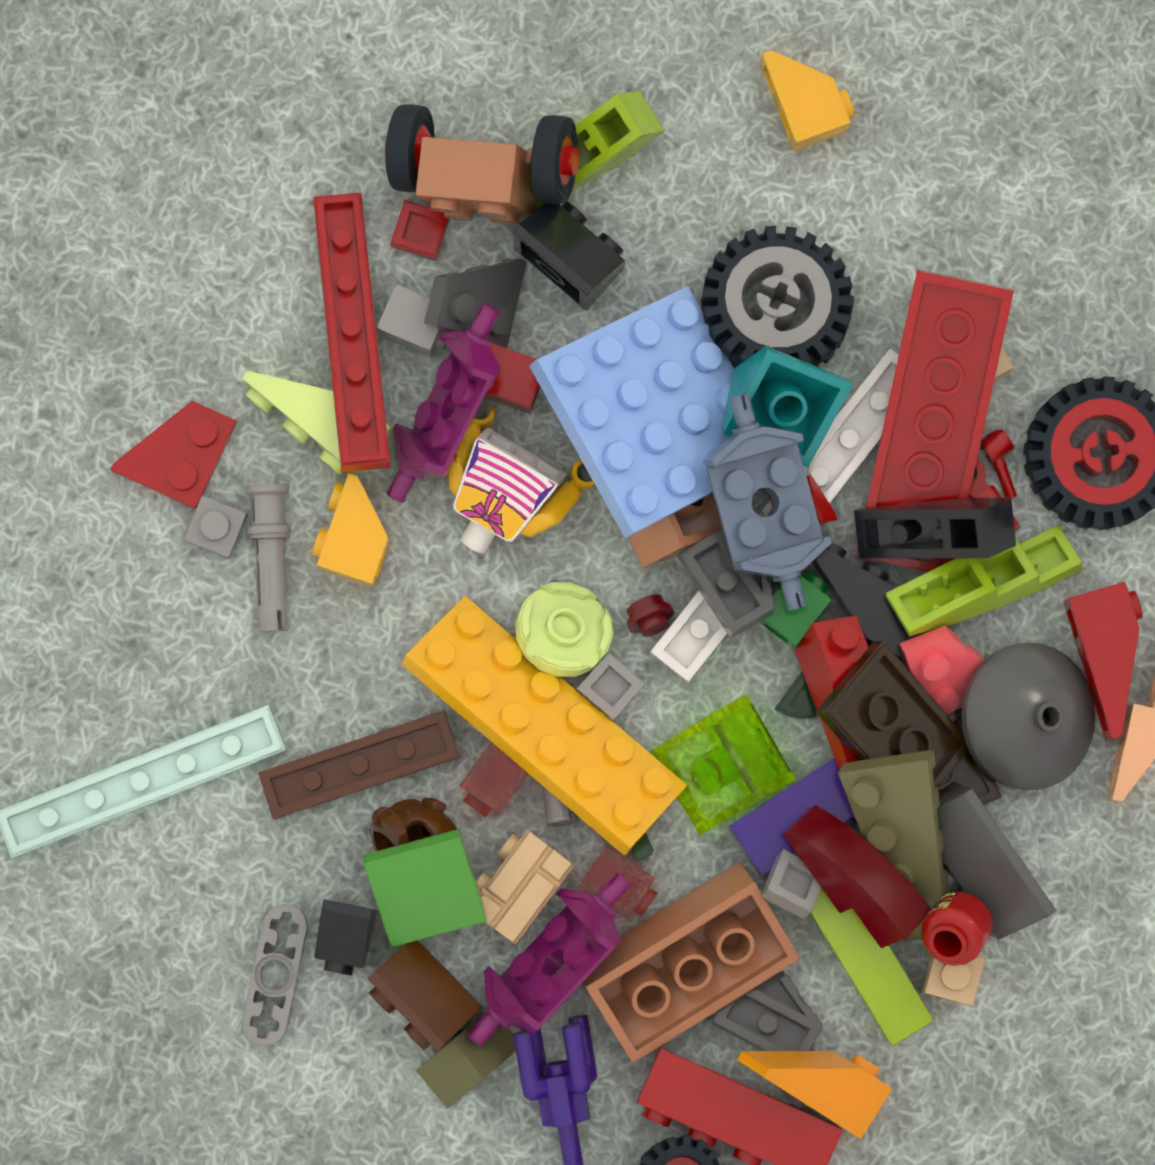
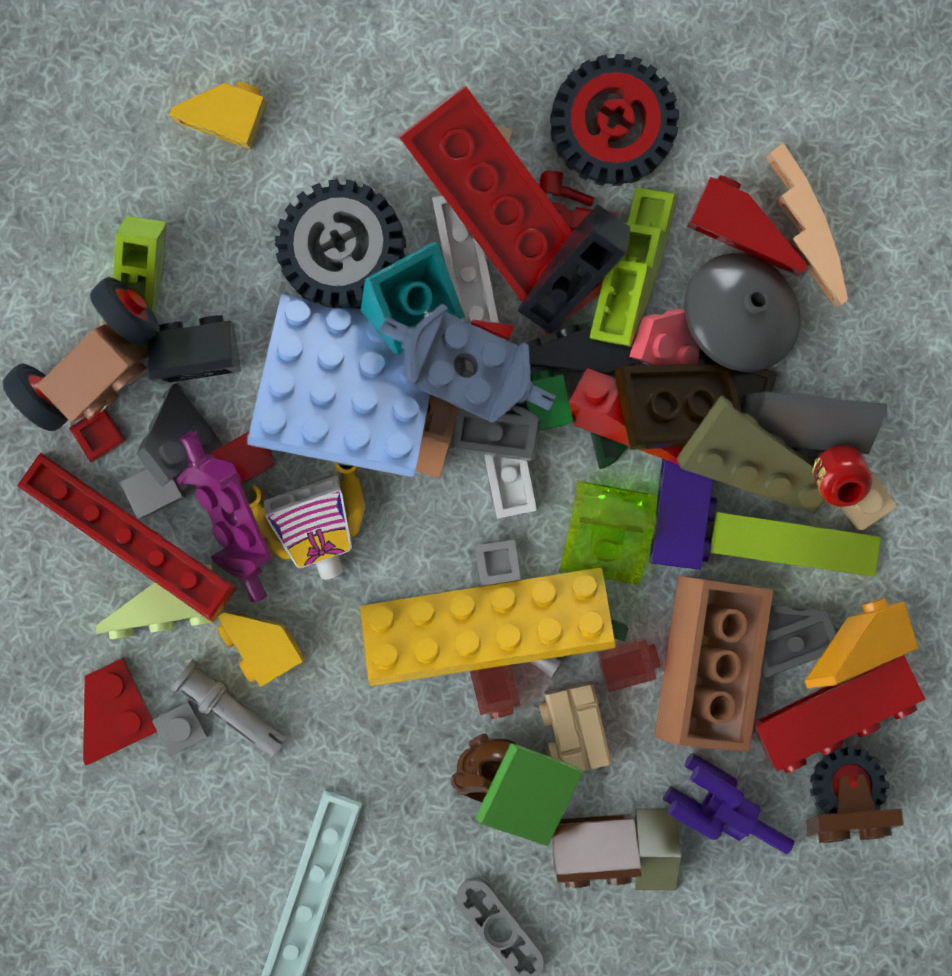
camera: 50 degrees left, 5 degrees up
(344, 936) = (513, 867): black slope -> none
(358, 765) = (411, 765): reddish brown plate -> none
(530, 987) = (647, 780): magenta plate -> none
(563, 629) = (435, 561): yellowish green tile -> none
(649, 615) = (473, 499): dark red plate -> none
(791, 885) = (725, 555): light grey plate -> none
(857, 876) = (755, 511): dark red slope -> none

